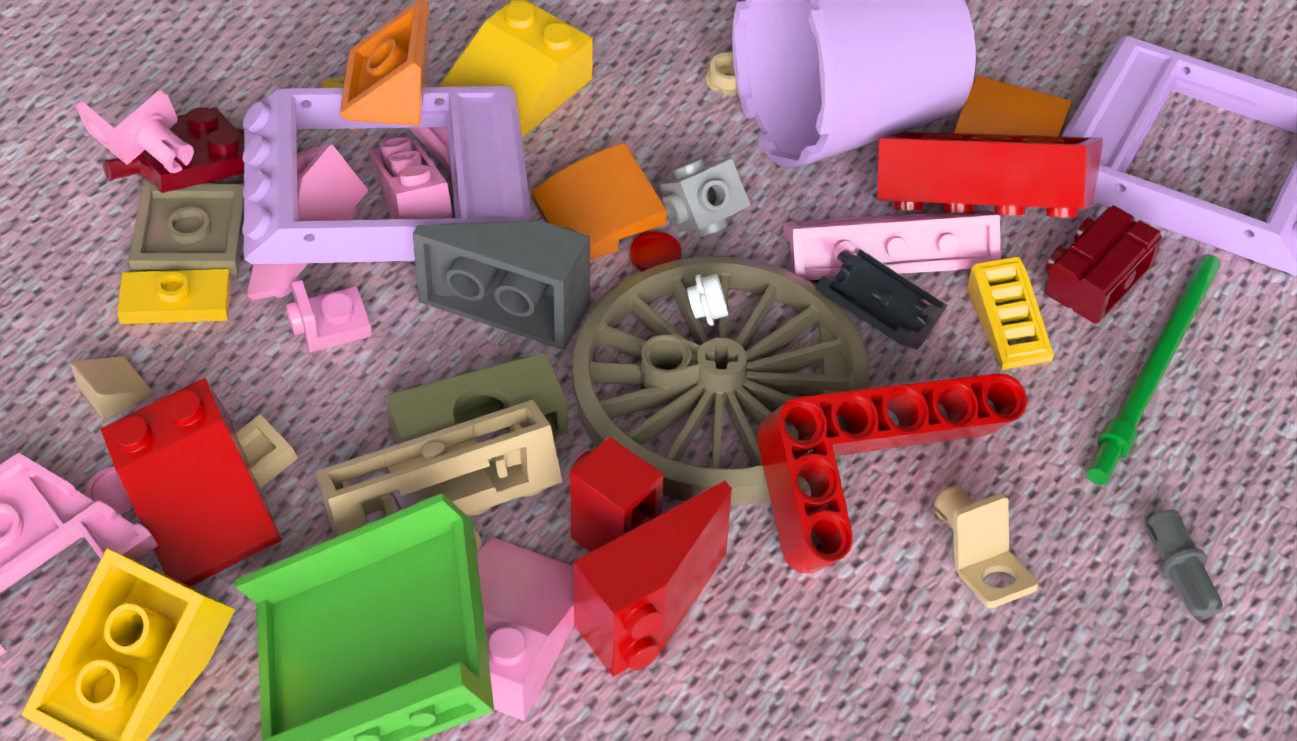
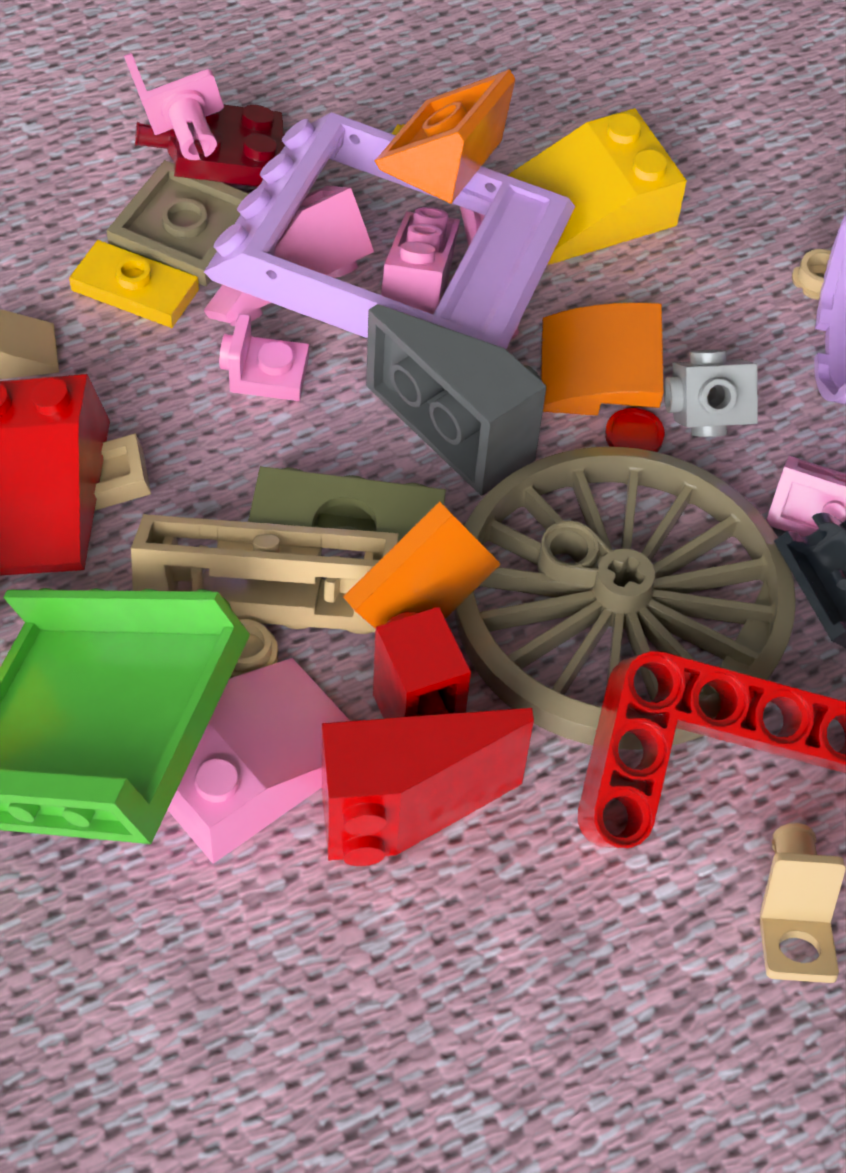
camera: 25 degrees right, 5 degrees up
(578, 416) = (426, 569): none -> orange slope
(707, 298) = (645, 503): white plate -> none

